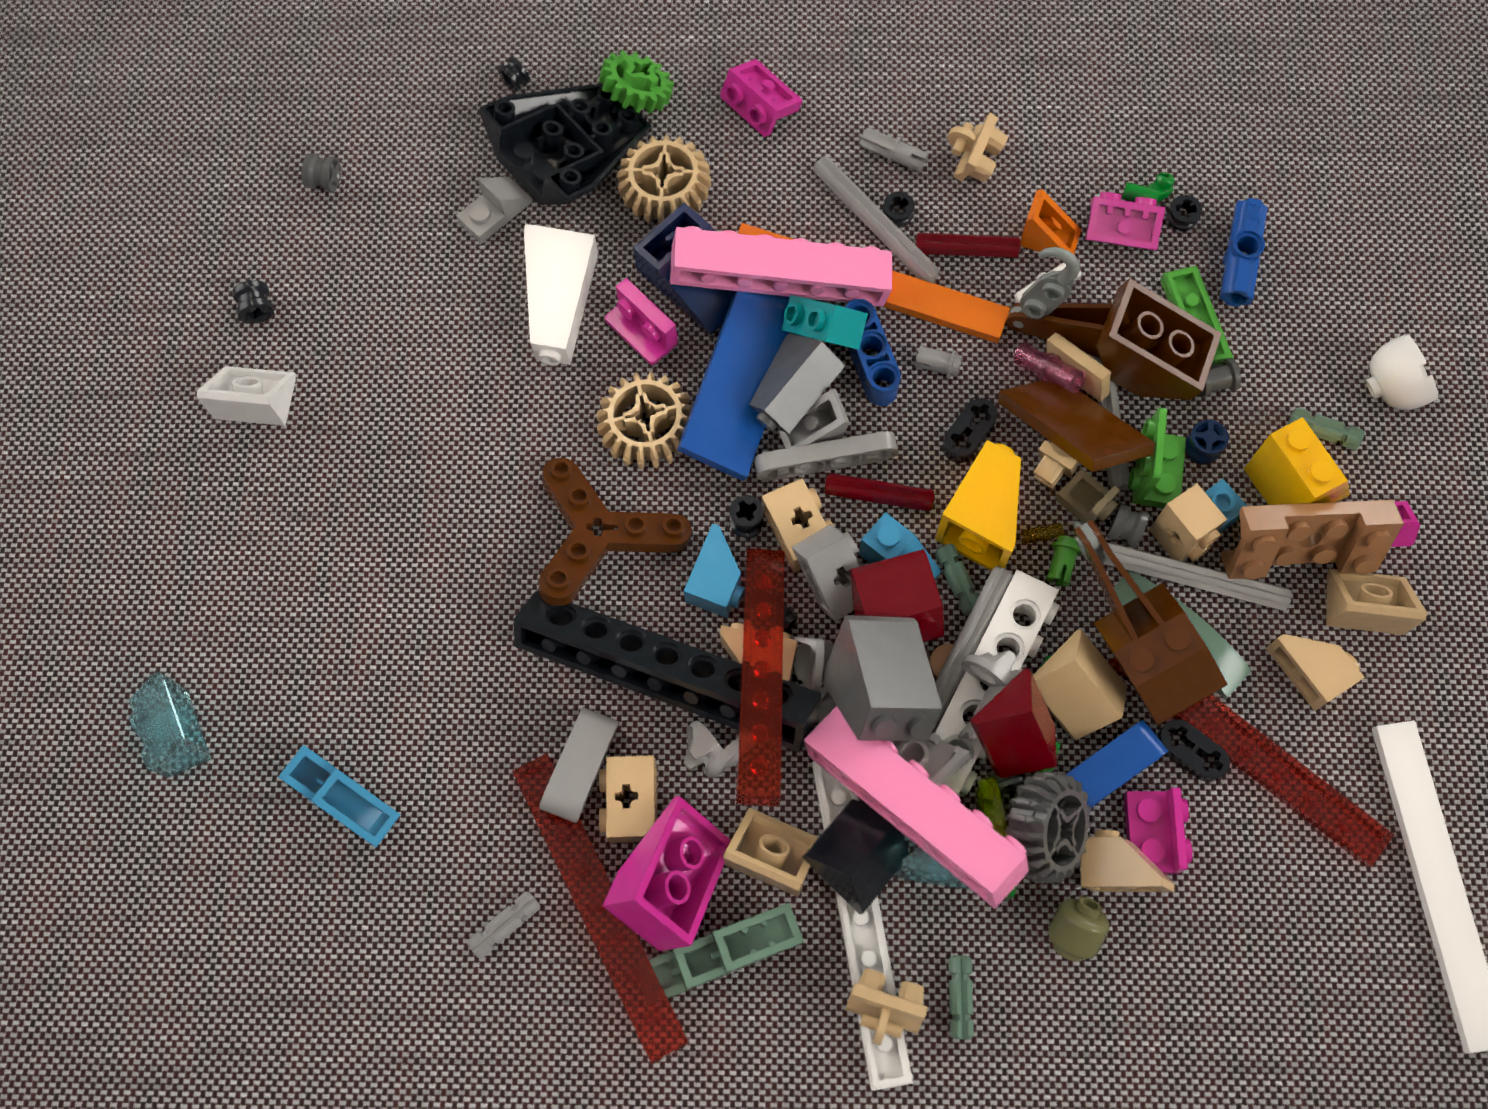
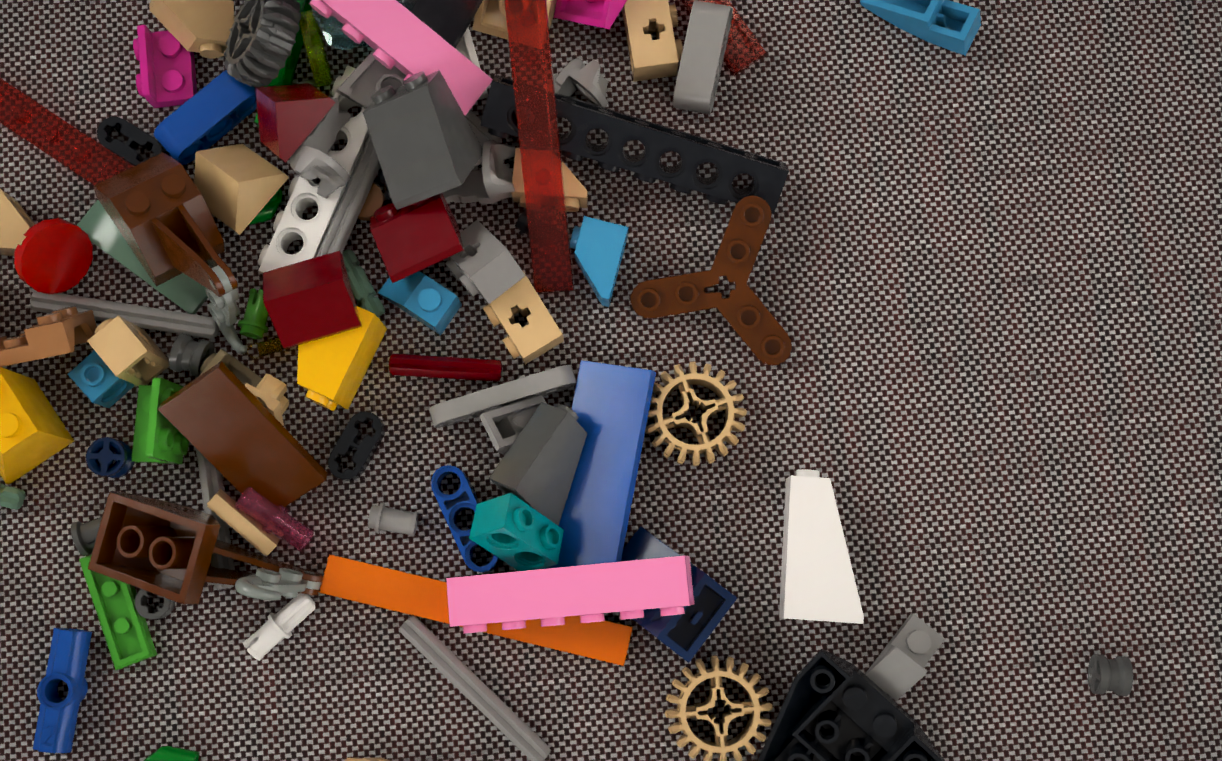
camera: 170 degrees right, 10 degrees up
(167, 727) = (1093, 48): clear light blue slope -> none
(249, 395) = (1116, 398): white slope -> none
(253, 301) = (1141, 503): black wheel -> none
(642, 324) = (717, 521): dark pink bracket -> none
(752, 508) = (578, 308): black bush -> none
(902, 200) = (438, 702): black bush -> none
(968, 244) = (369, 669): dark red axle -> none
(1005, 531) = (310, 300): none -> dark red slope
(1049, 226) = (278, 695): orange slope -> none
(1125, 222) = (194, 716): dark pink bracket -> none
(1174, 216) = (121, 728): black bush -> none
(1268, 628) = (53, 256): none -> red tile

